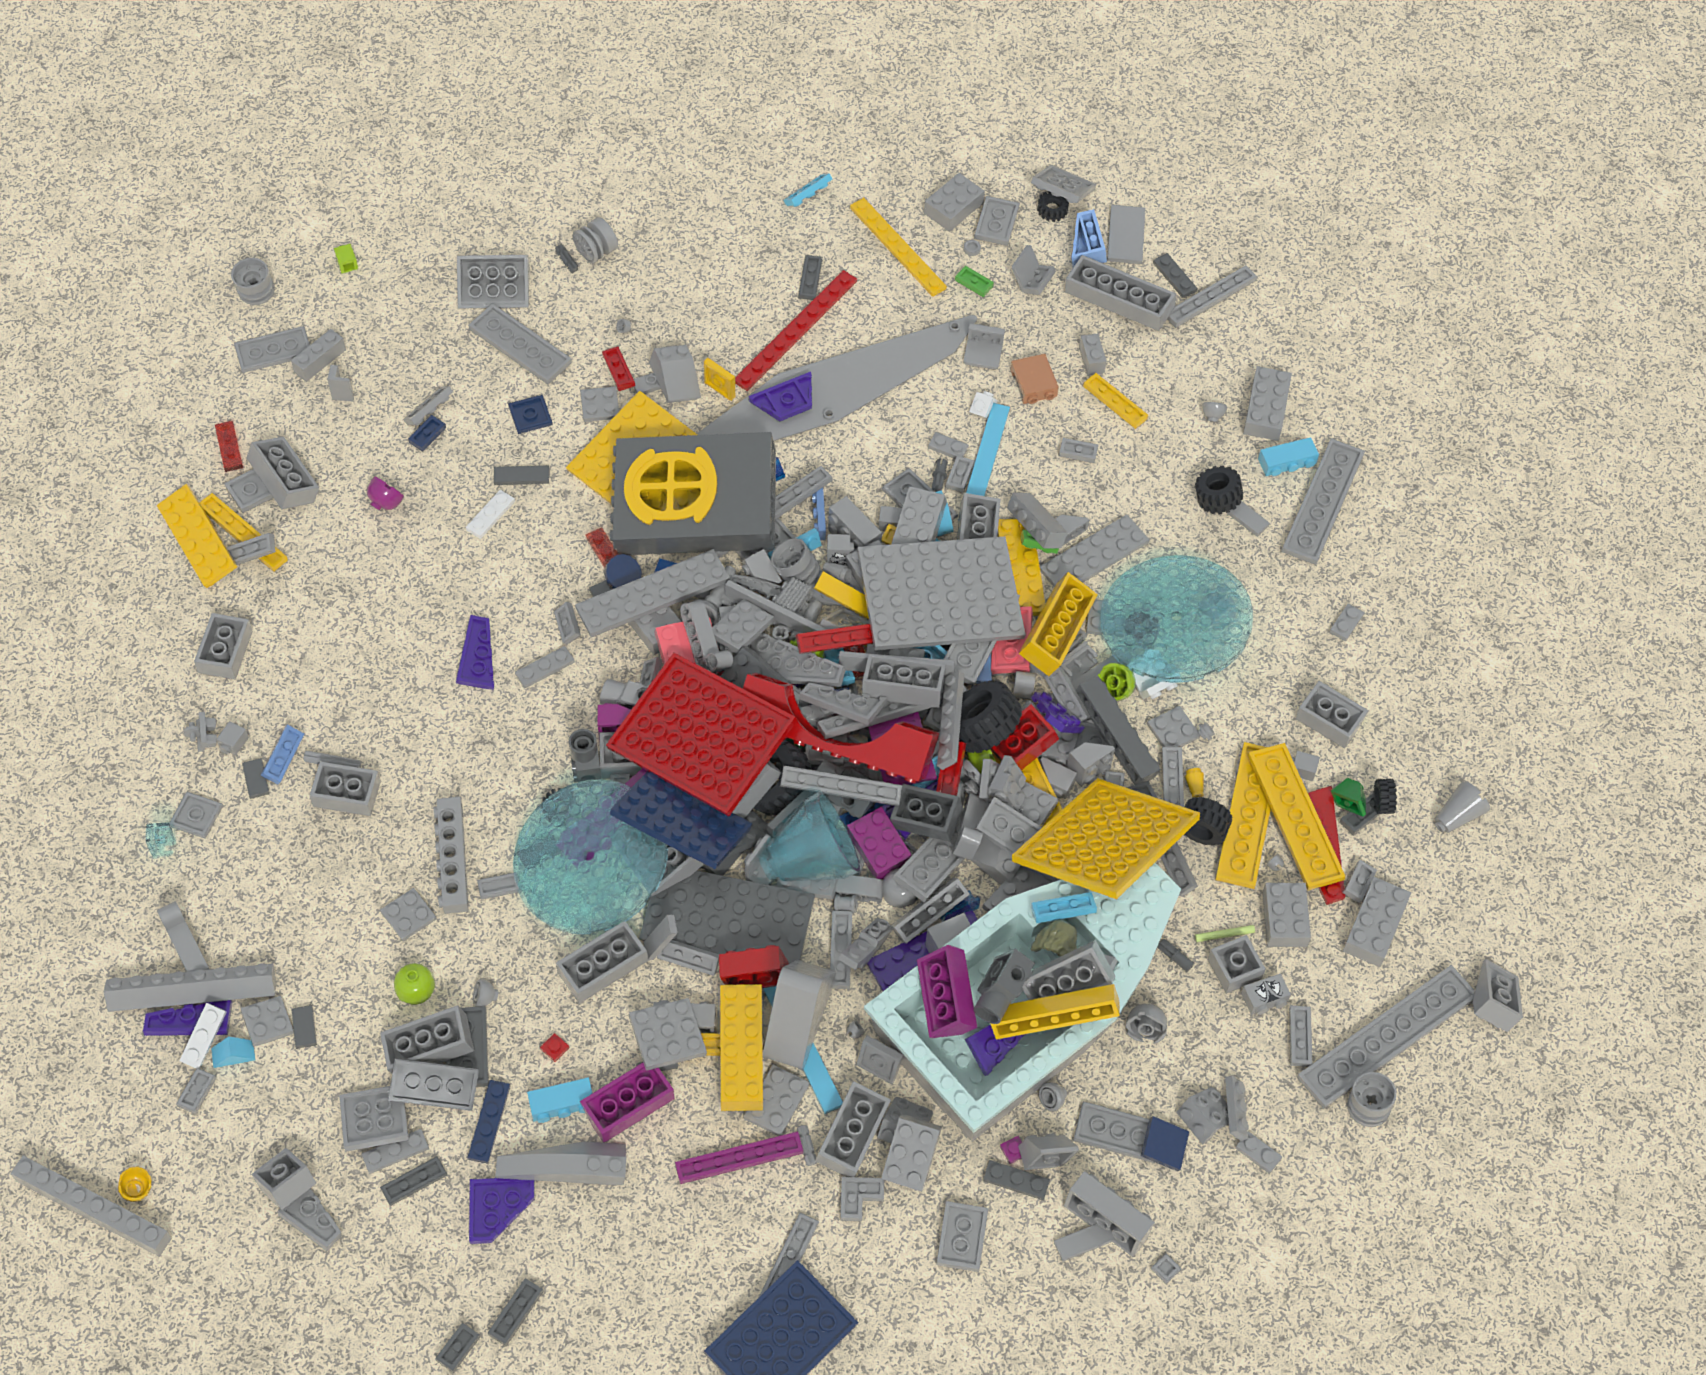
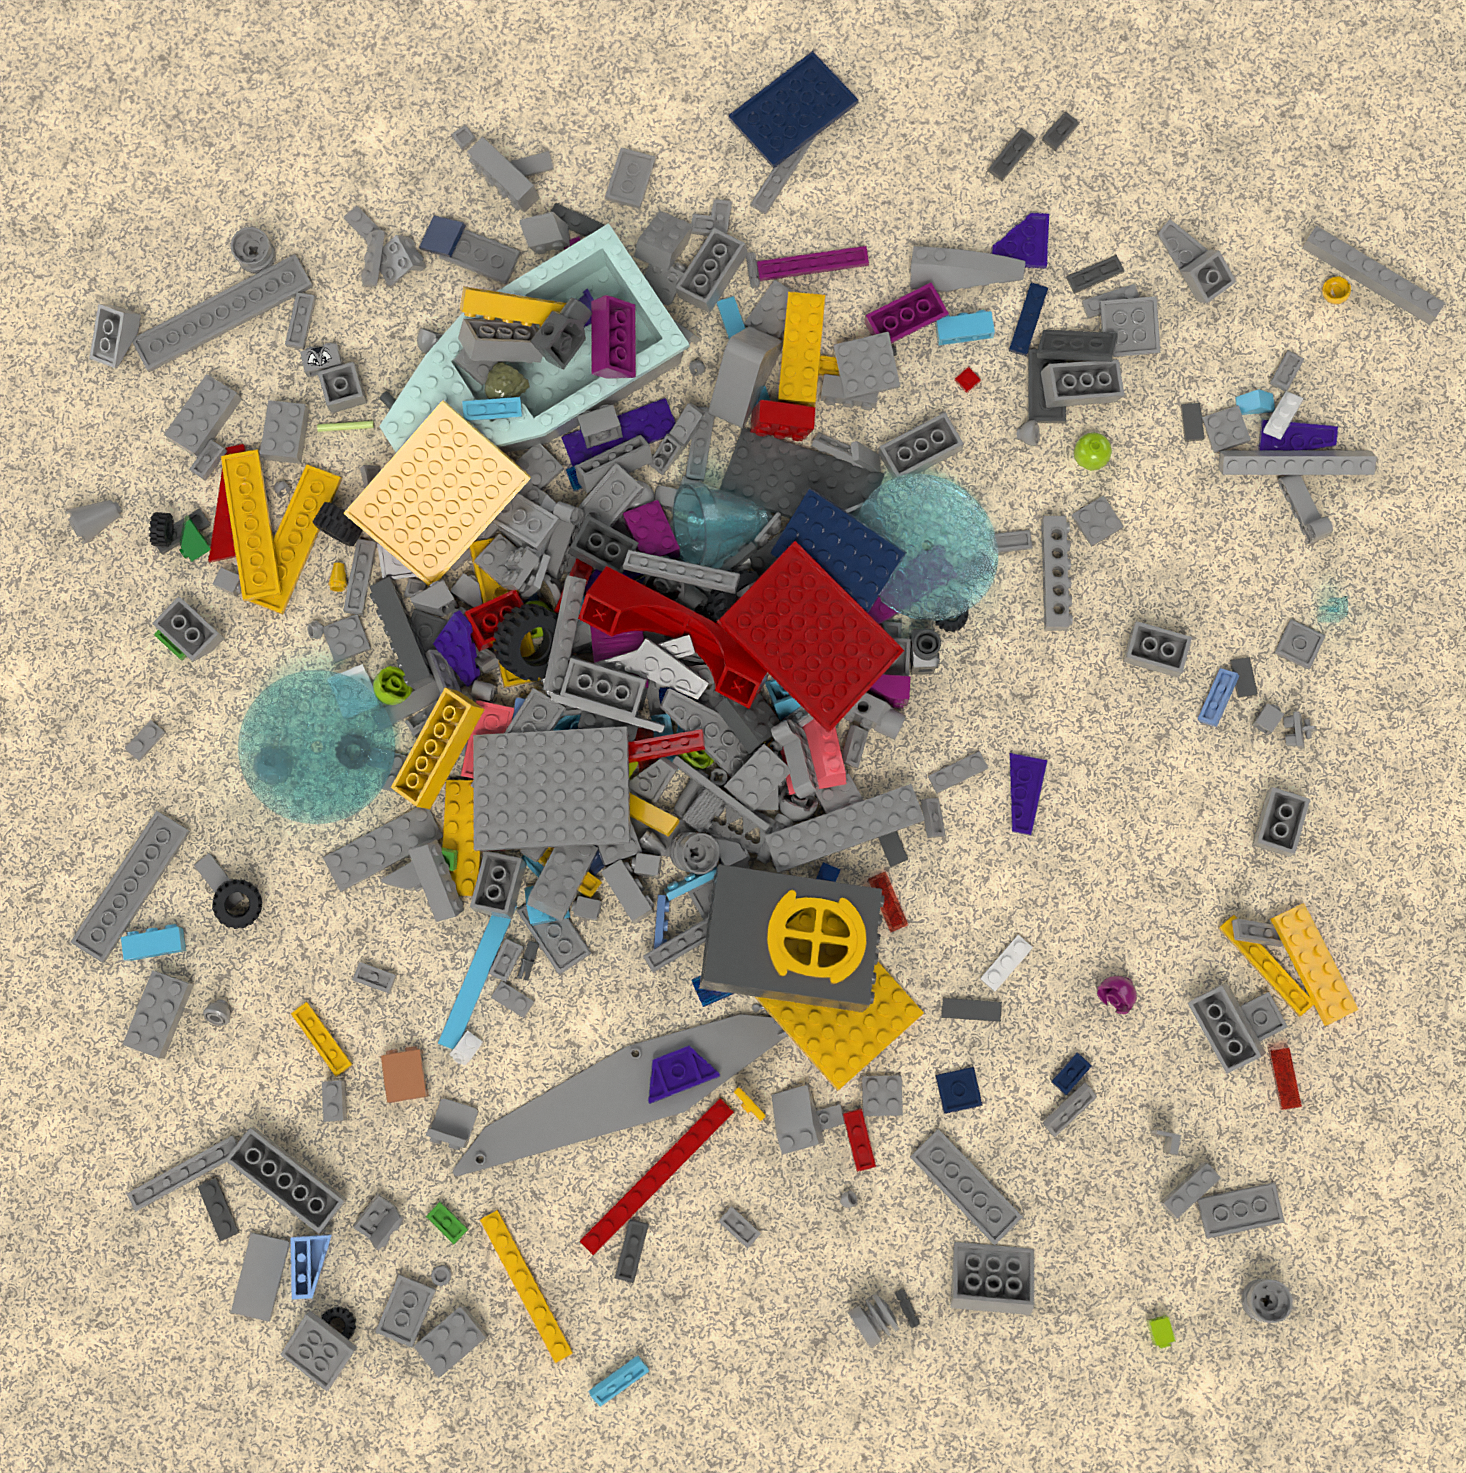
camera: 165 degrees left, 20 degrees up
(316, 757) = (1169, 688): light grey axle -> none
(622, 570) = (872, 869): dark blue tile -> none
(718, 299) = (739, 1227): none -> light grey plate

